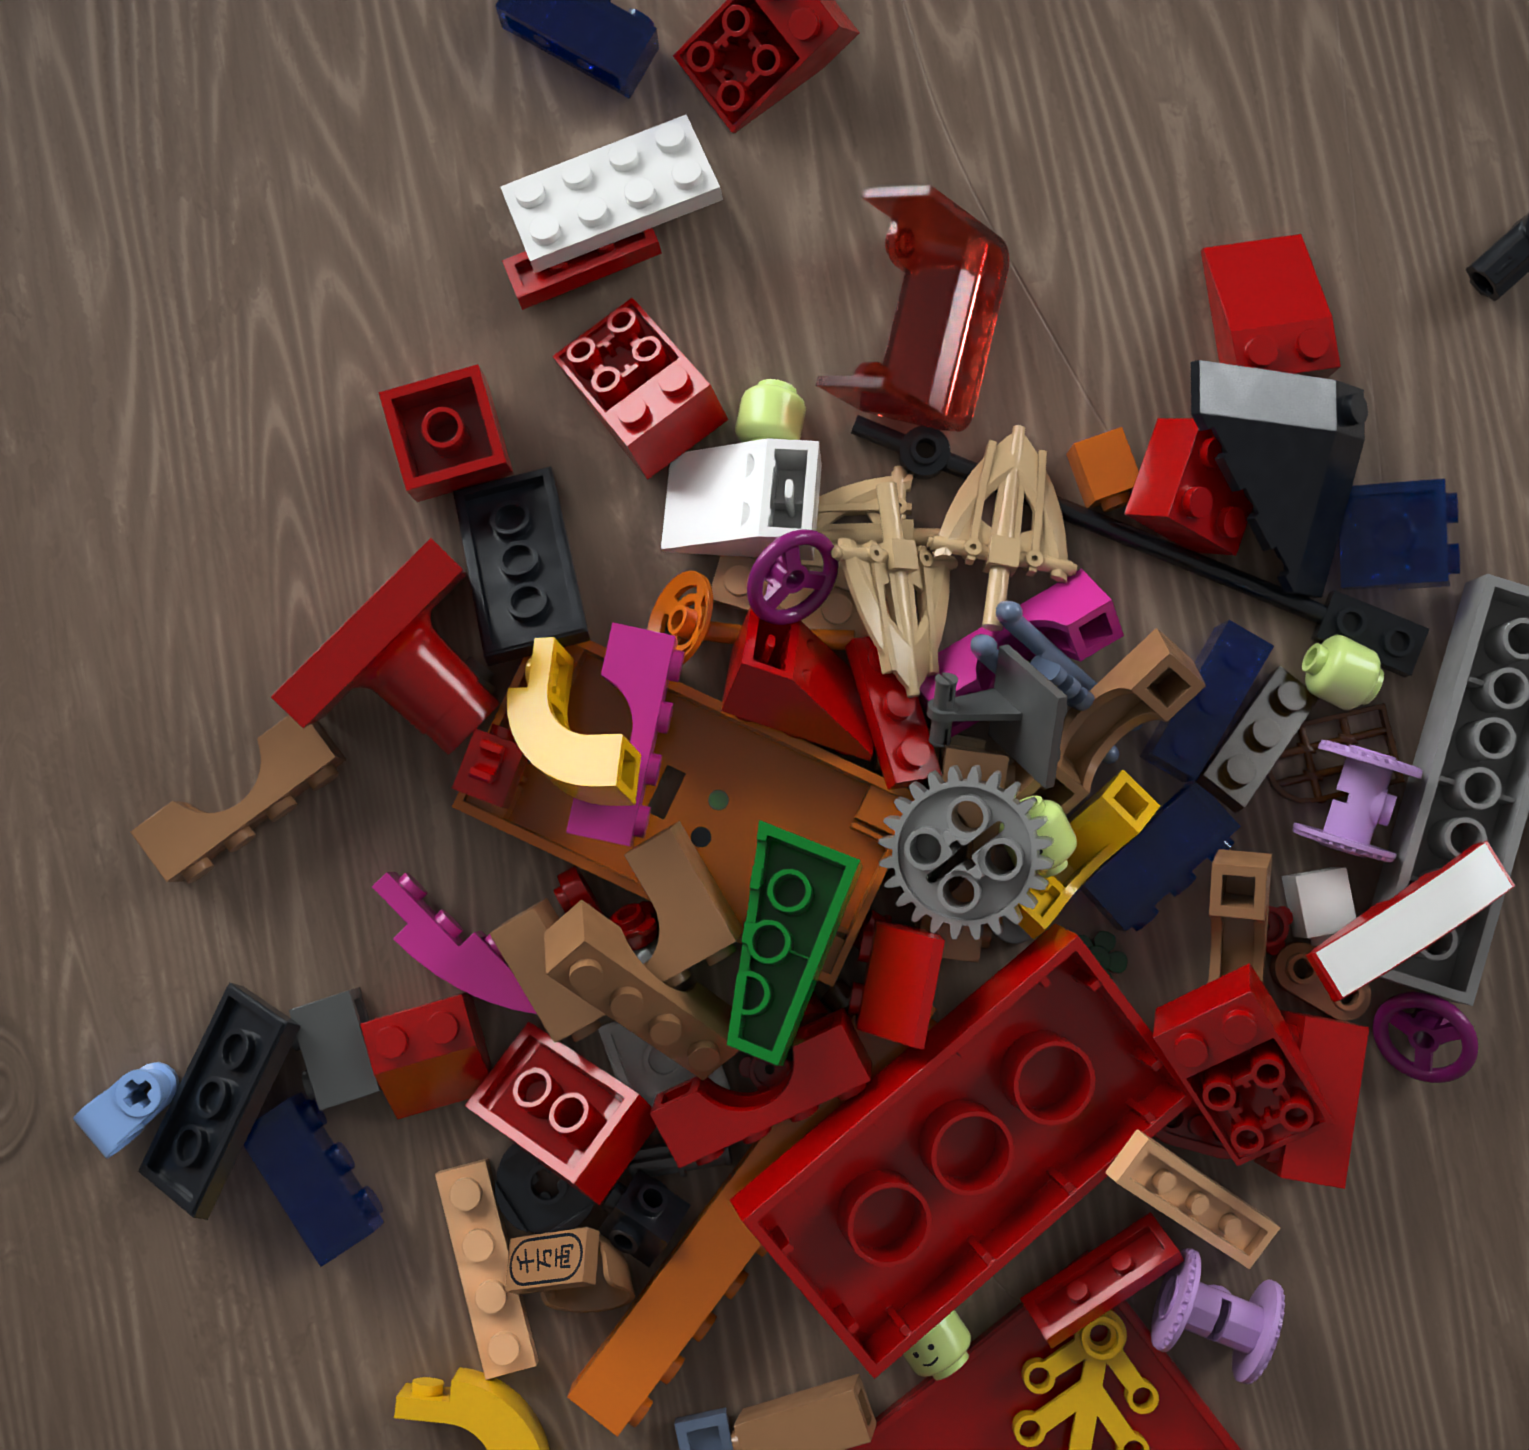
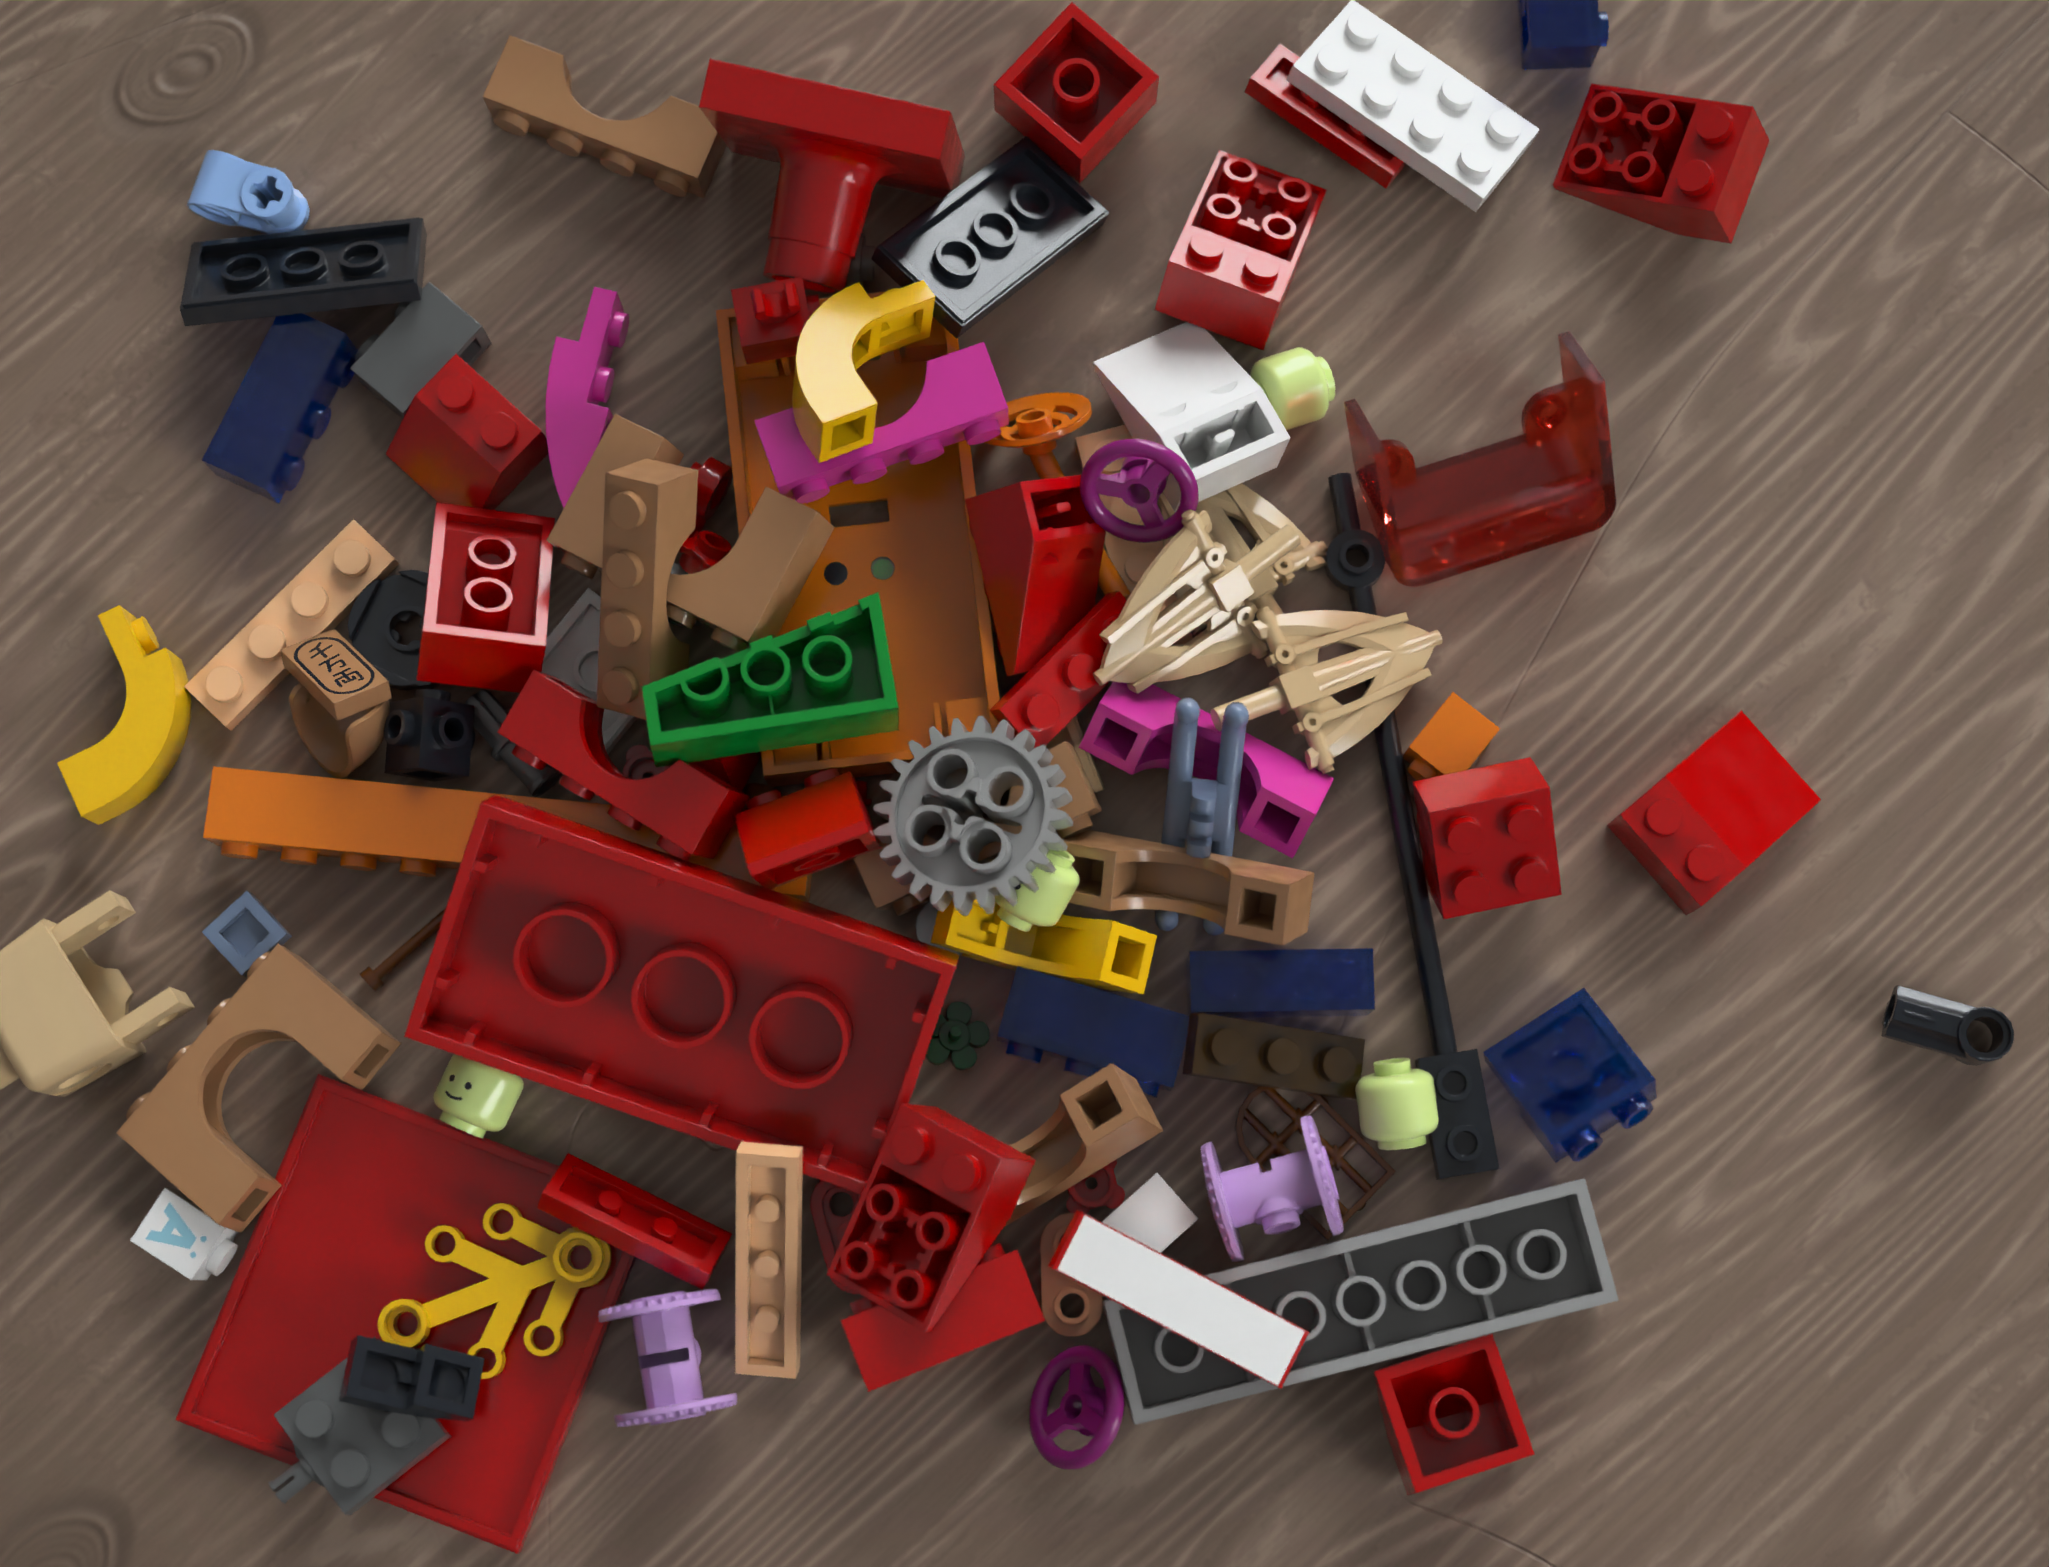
camera: 60 degrees right, 5 degrees down
(794, 1363) = (374, 977): none -> reddish brown piece
(1022, 711) = (1152, 784): dark grey plate -> none
(1292, 452) = (1577, 906): black slope -> none

